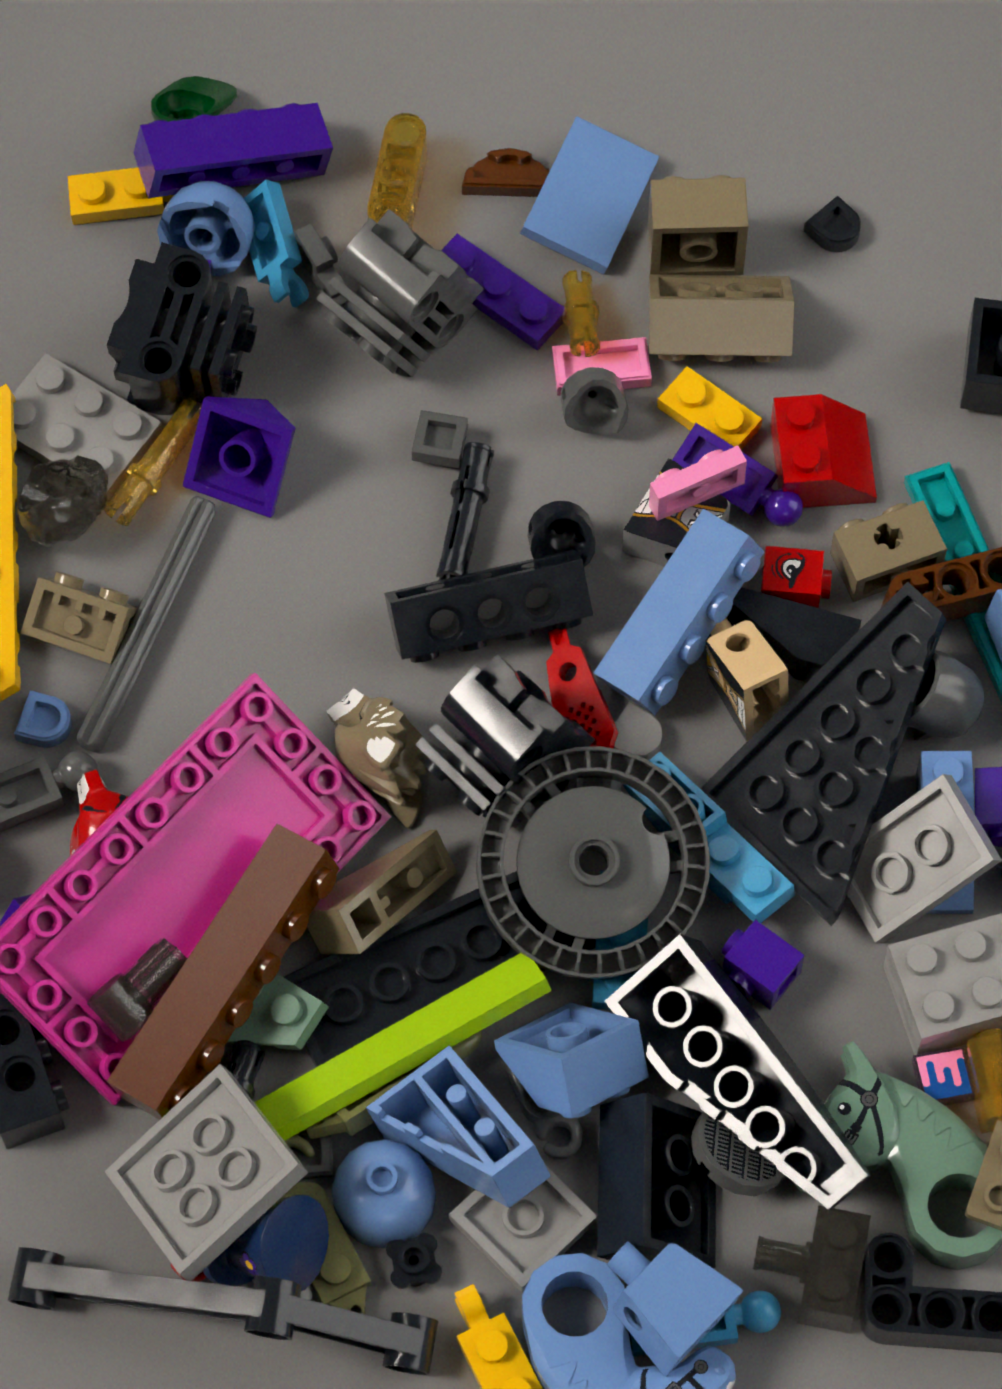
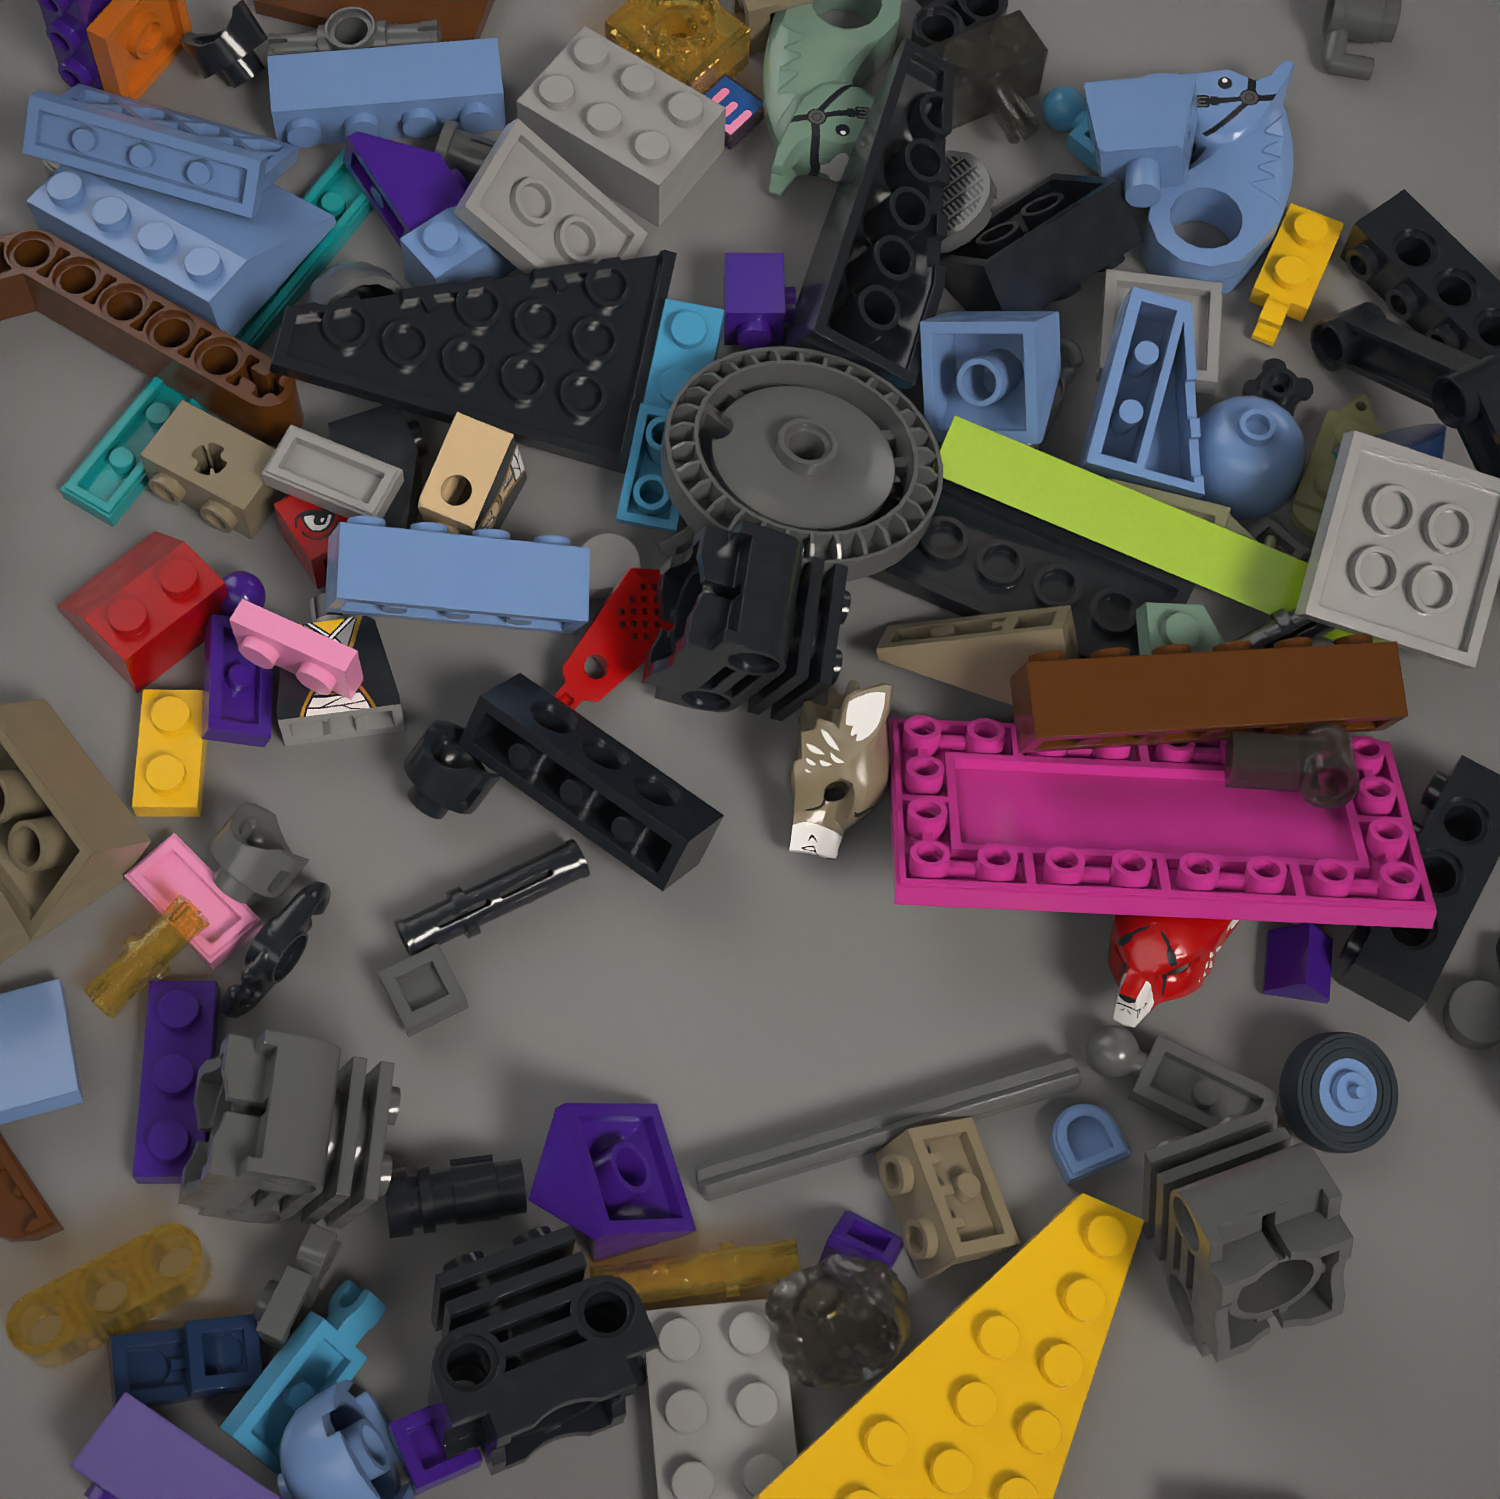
camera: 135 degrees left, 0 degrees up
(93, 555) = (862, 1239): none -> dark purple slope
(305, 375) = (463, 1194): none -> black axle
(336, 197) = (186, 1362): none -> dark blue slope
(529, 381) = (276, 949): none -> black piece
(813, 591) = (332, 475): none -> light grey tile

